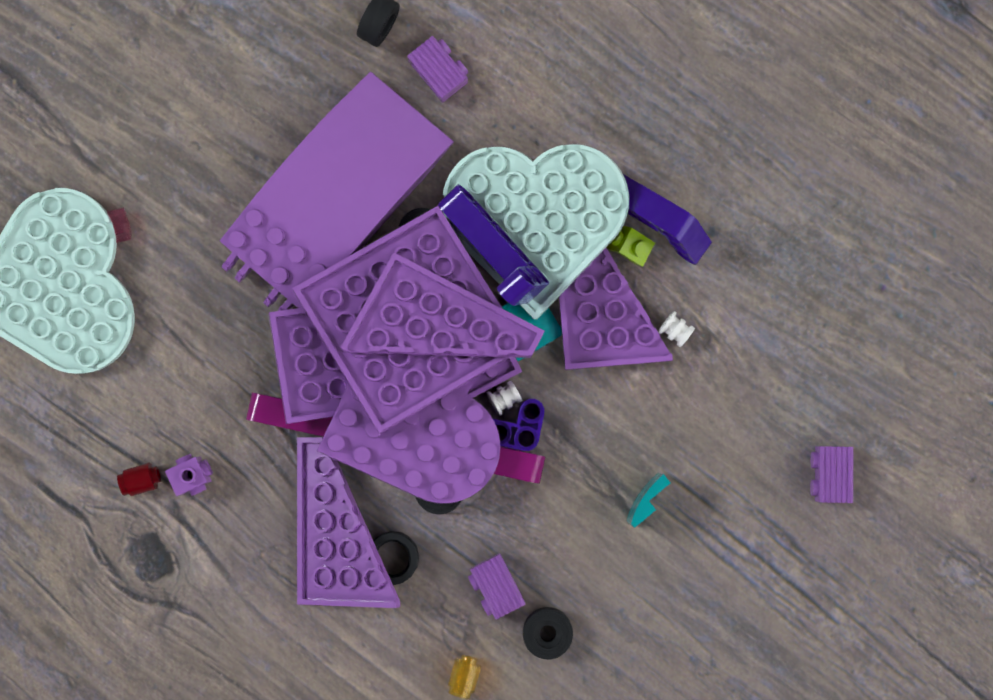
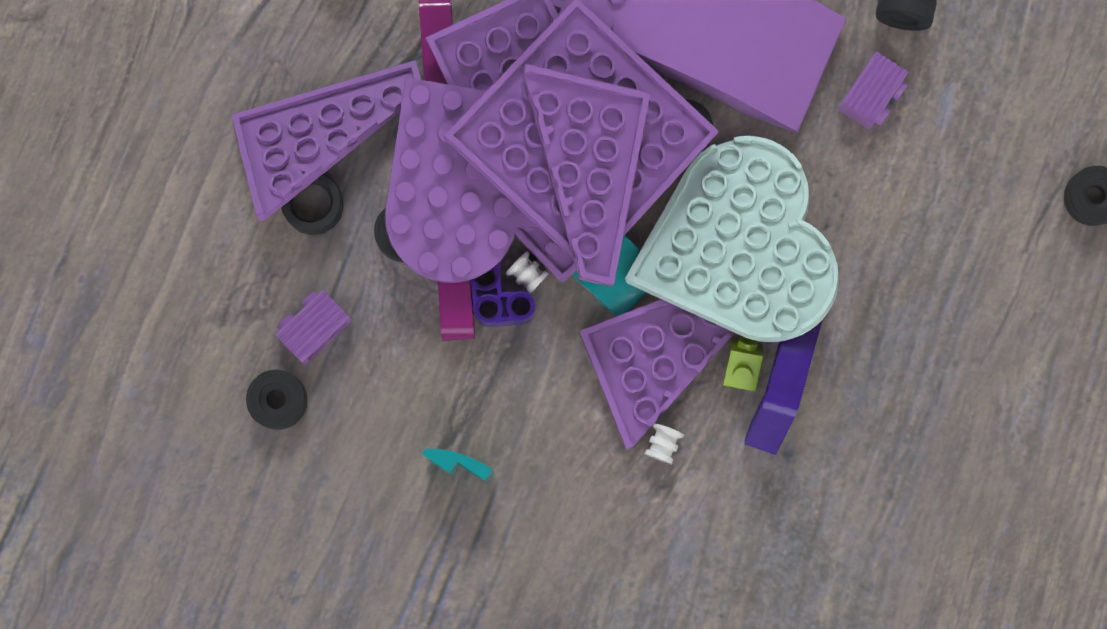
camera: 70 degrees right, 5 degrees down
(464, 677) = (202, 320): clear yellow brick -> none
(521, 277) = (668, 242): dark purple beam -> none

